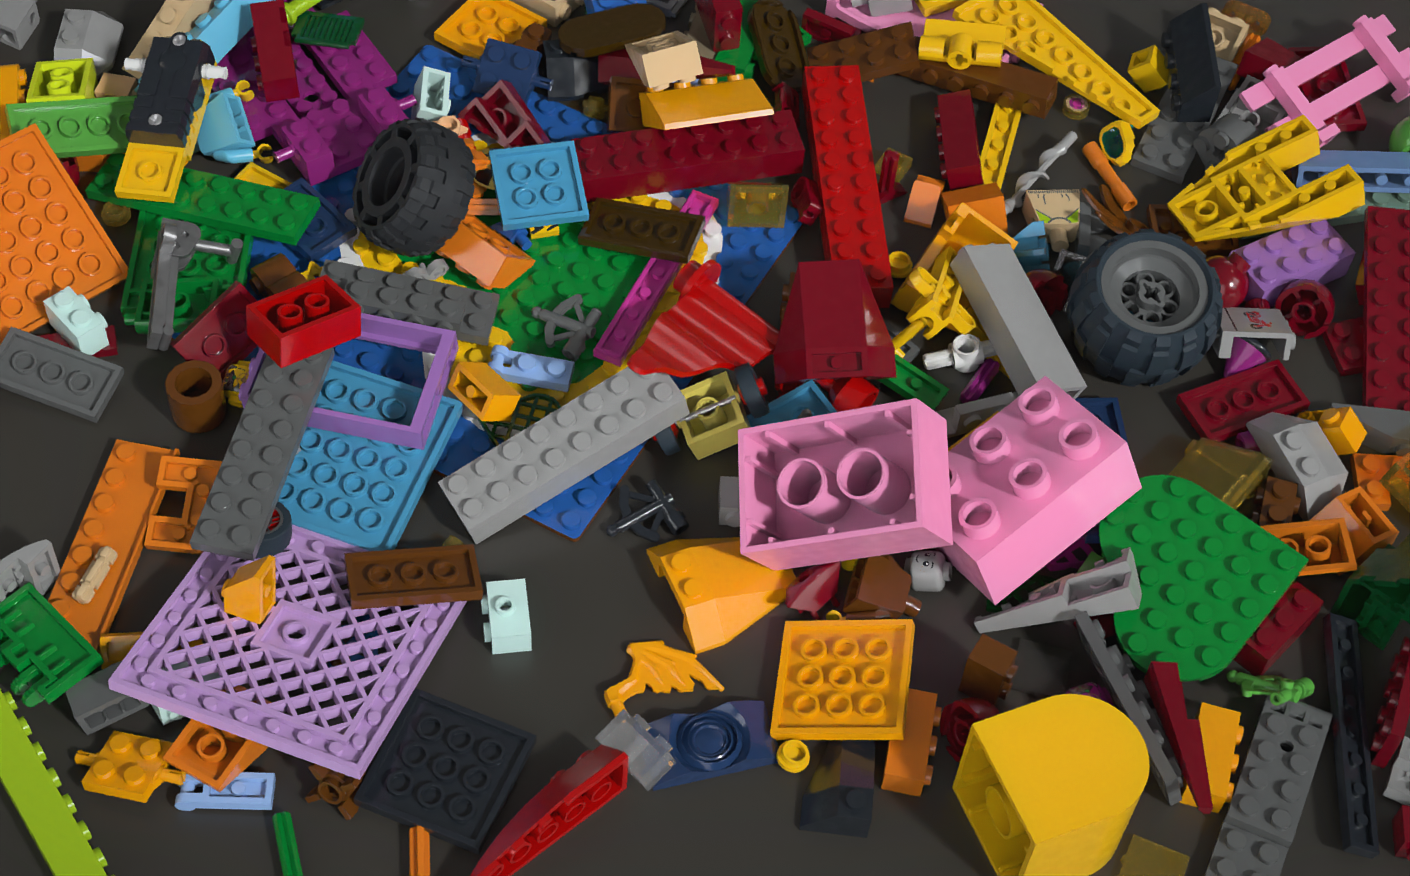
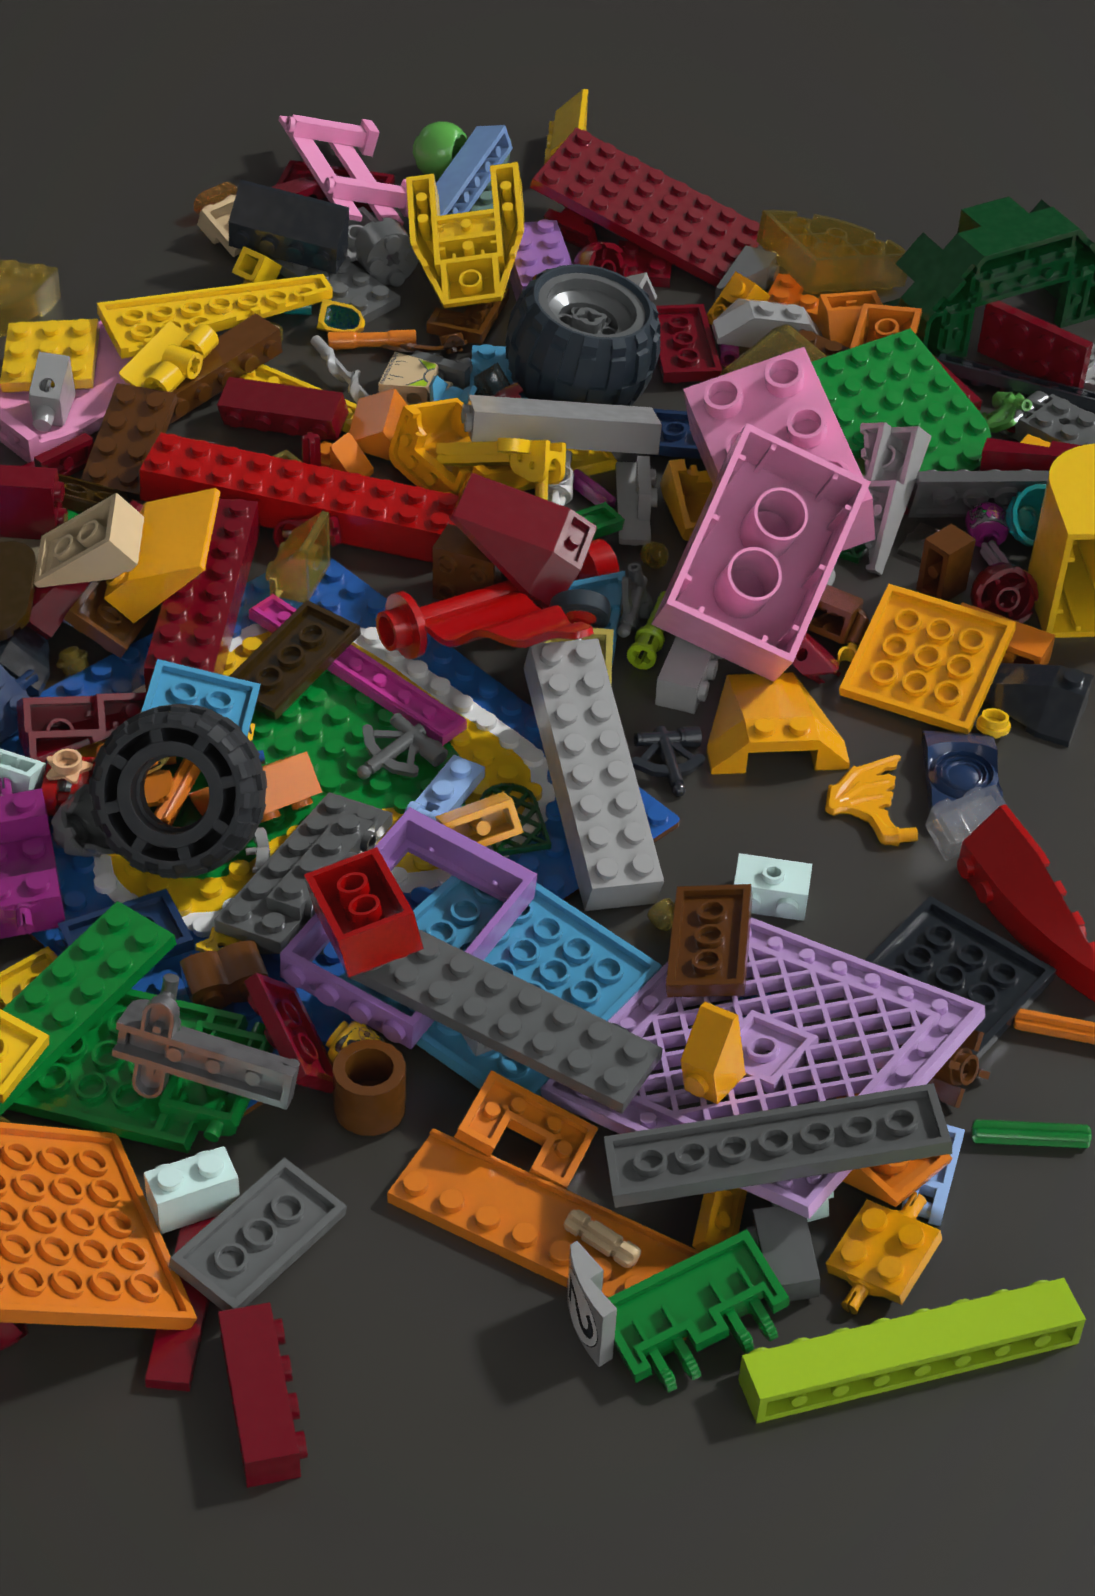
camera: 70 degrees left, 10 degrees down
(166, 651) = (776, 1145): none -> dark grey plate

